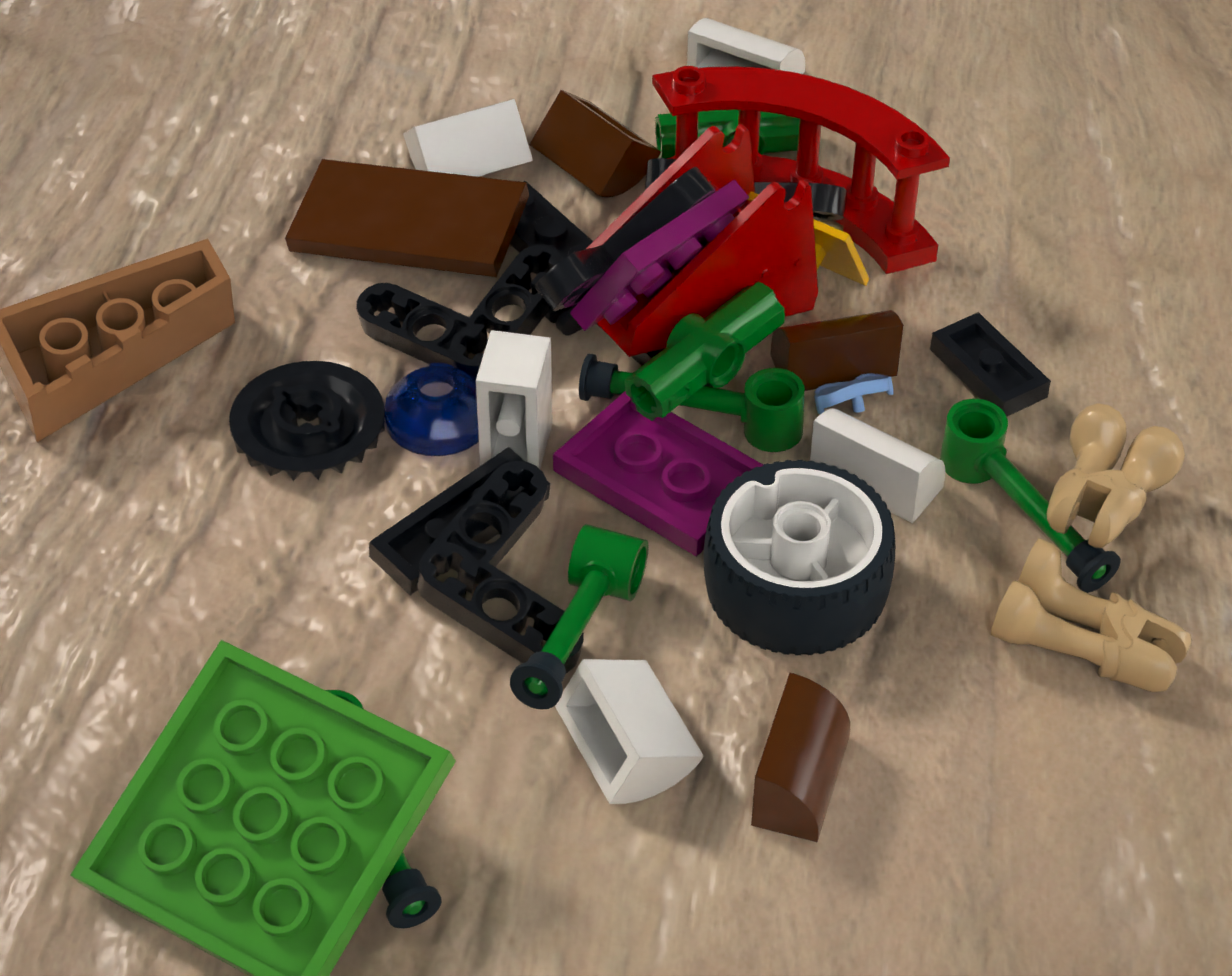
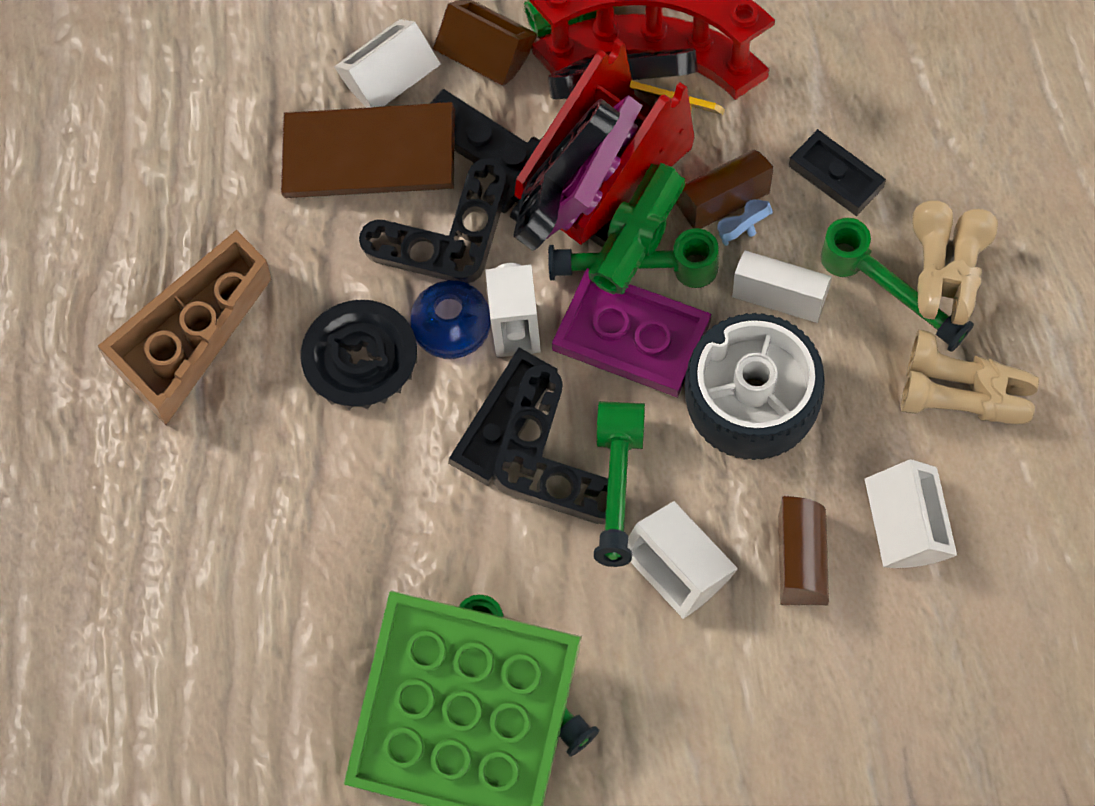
camera: 10 degrees left, 20 degrees up
(965, 755) = (910, 515): none -> white brick

